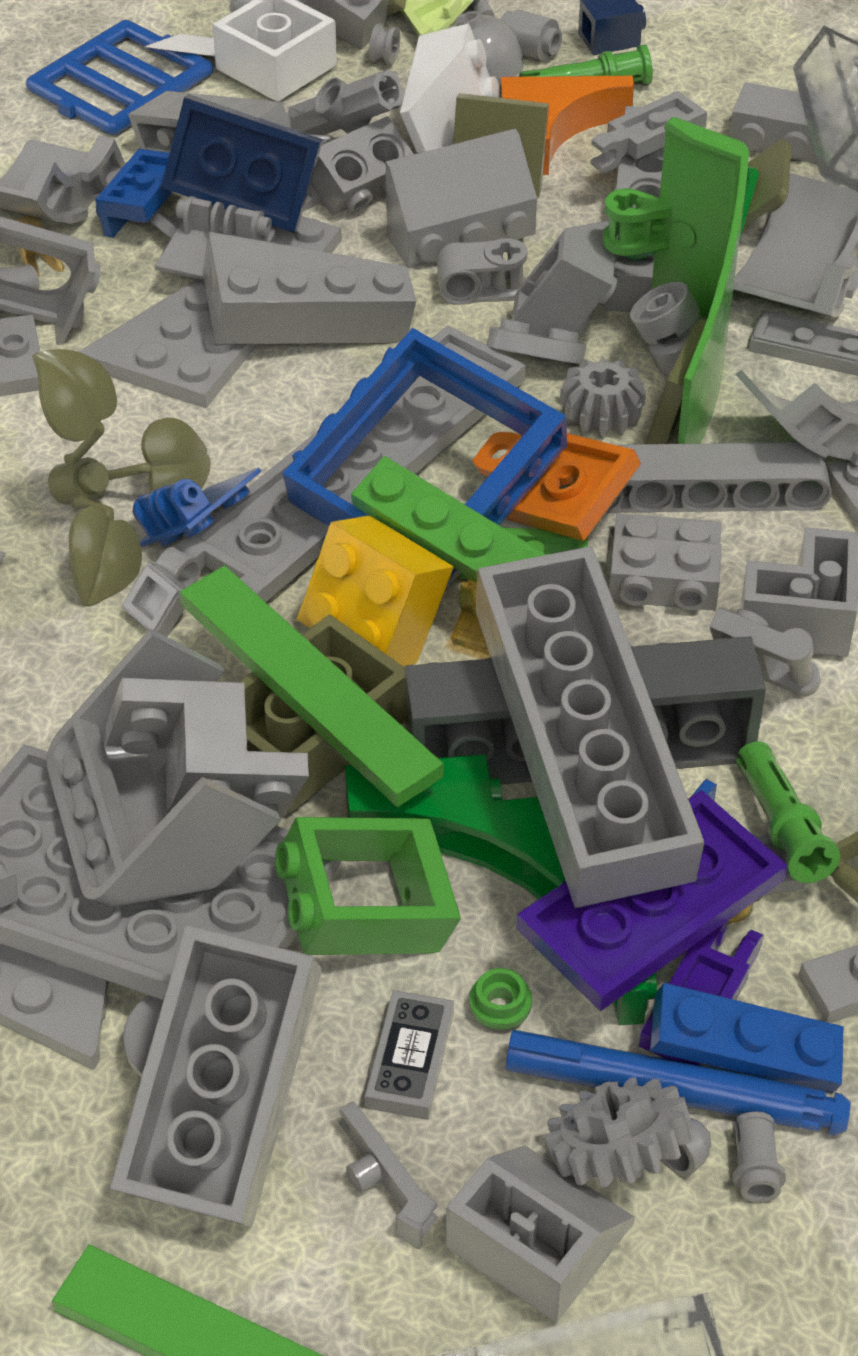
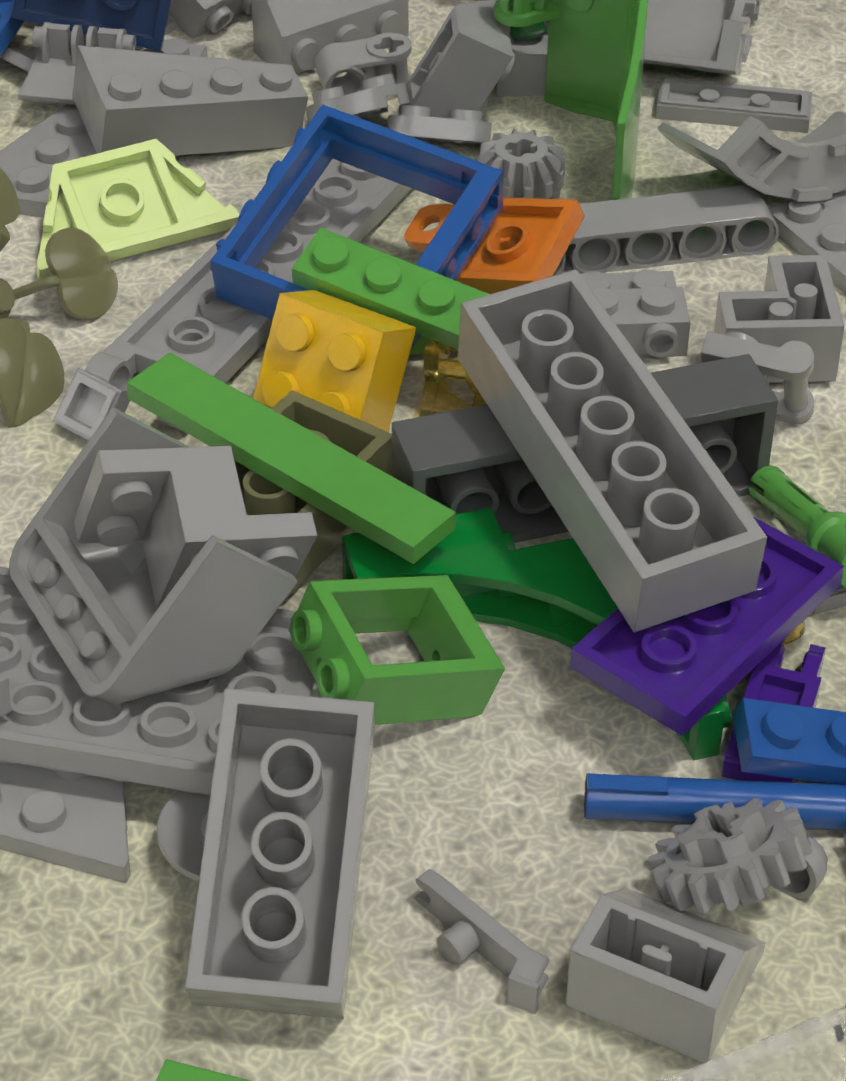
camera: 10 degrees left, 5 degrees down
(185, 507) = (104, 310): blue hinge -> none
(233, 391) = (131, 202): none -> yellowish green wing
(409, 1055) = (477, 818): tile -> none
(447, 312) = (362, 103): none -> light grey plate
(500, 984) = (562, 748): bright green plate -> none
(665, 321) = (580, 97): light grey wheel -> none
(670, 403) = (603, 144): olive plate -> none

